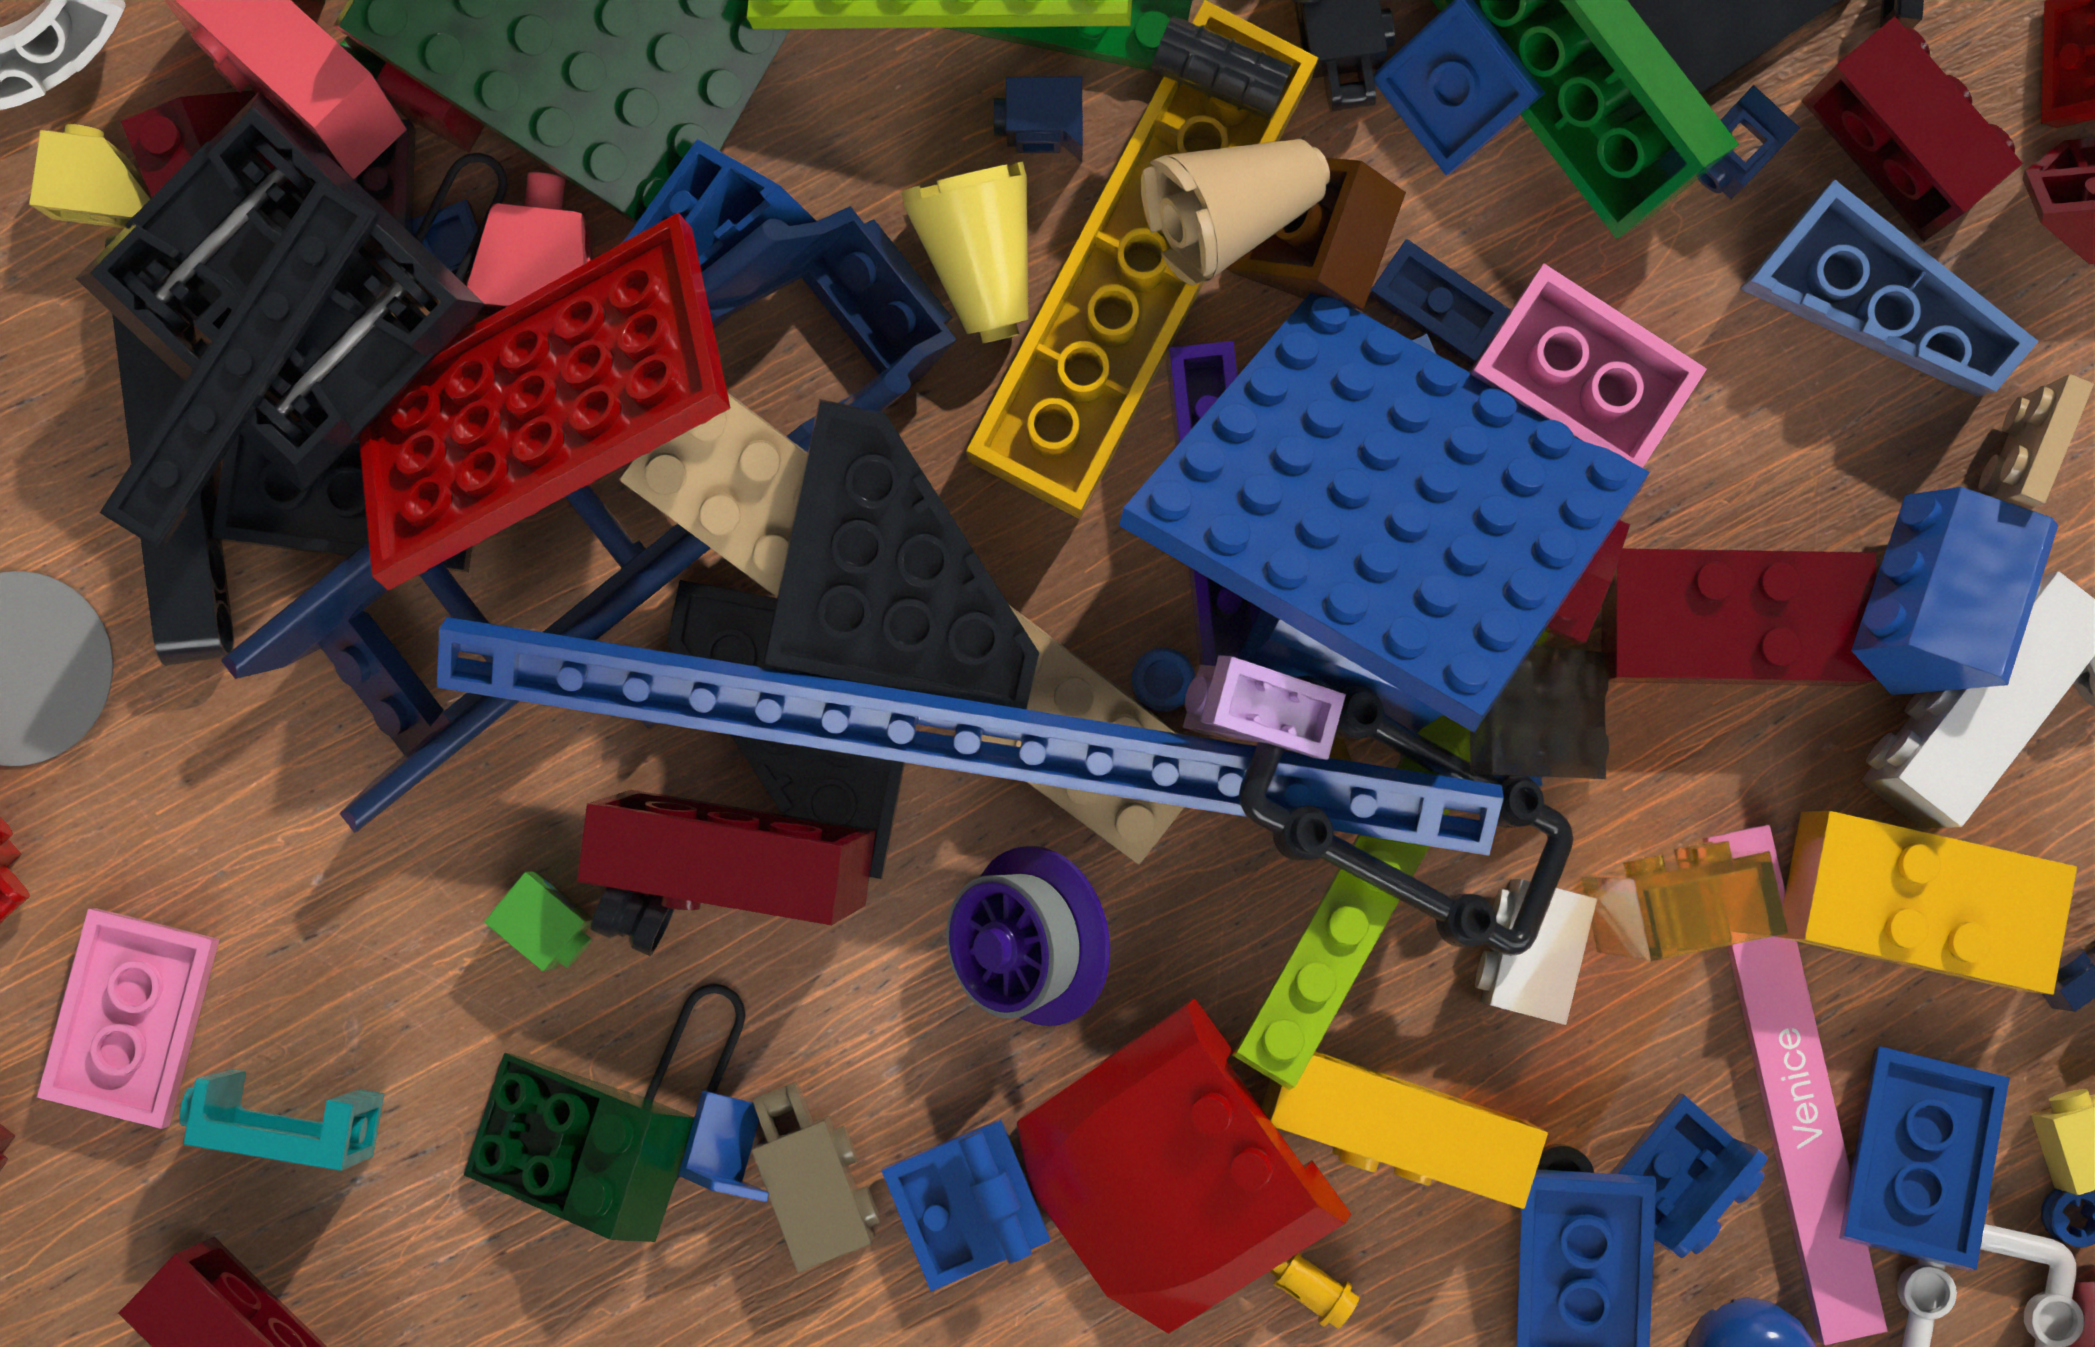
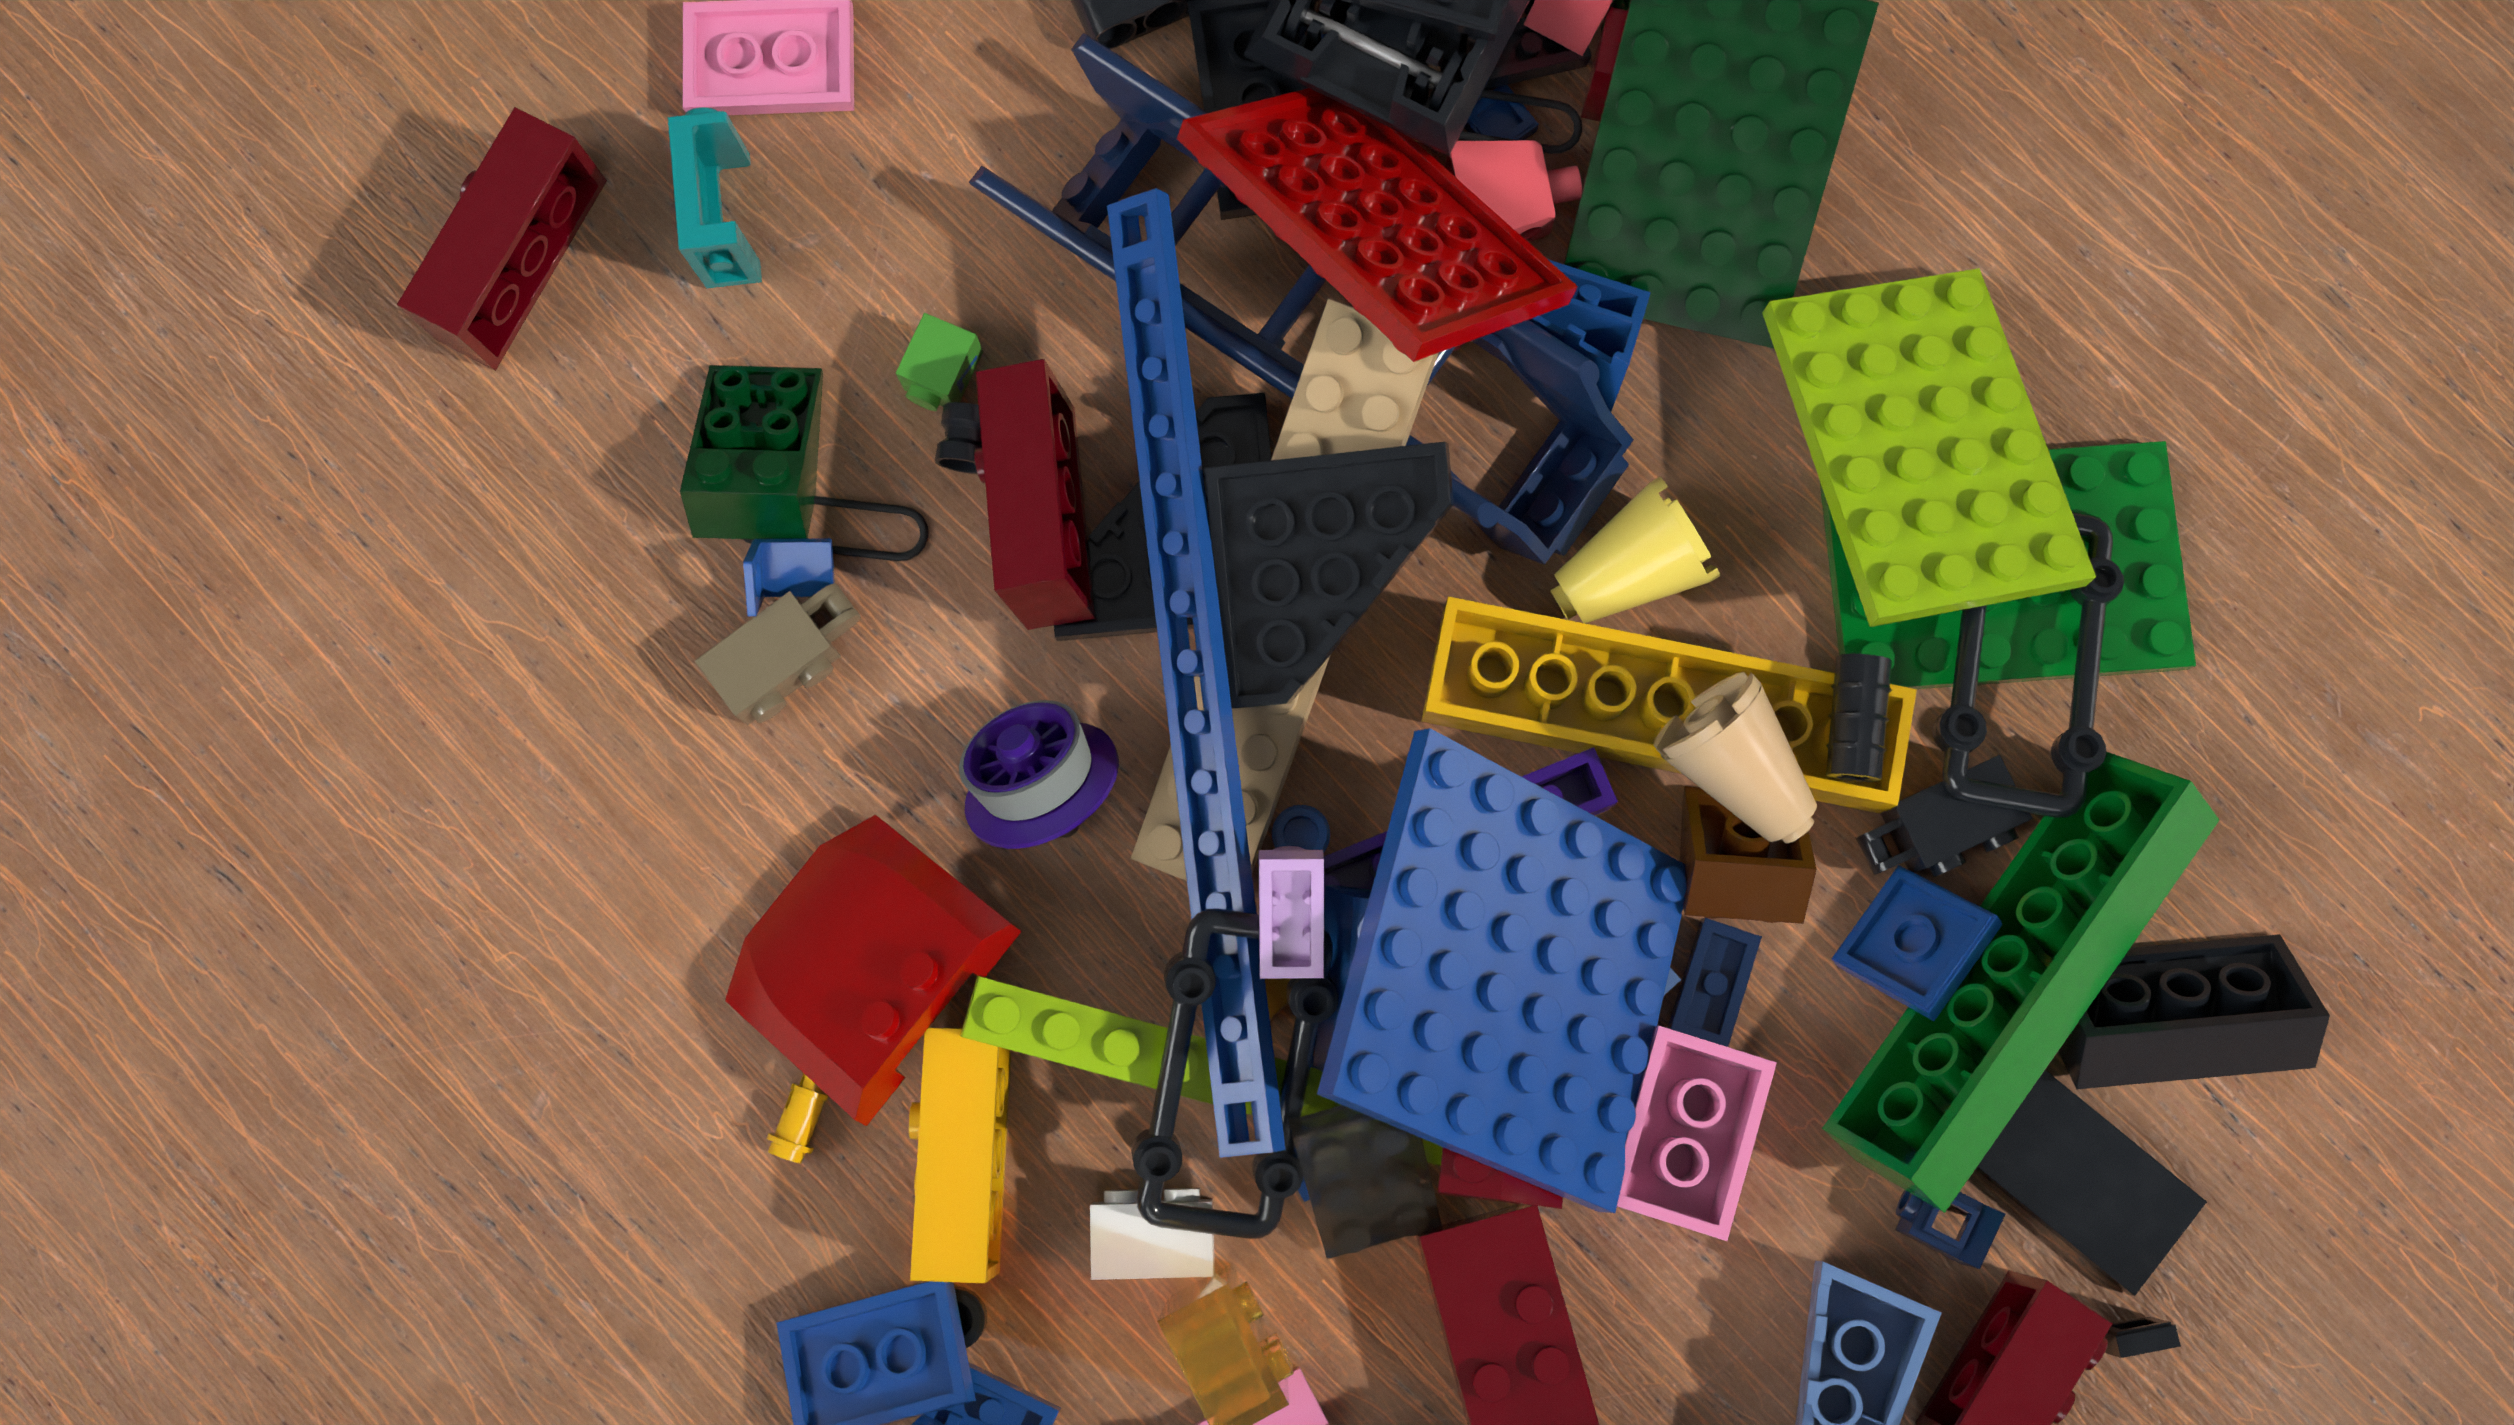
camera: 75 degrees right, 5 degrees down
(966, 1205) = (792, 793): blue plate -> none
(1041, 114) = (1769, 583): dark blue window -> none

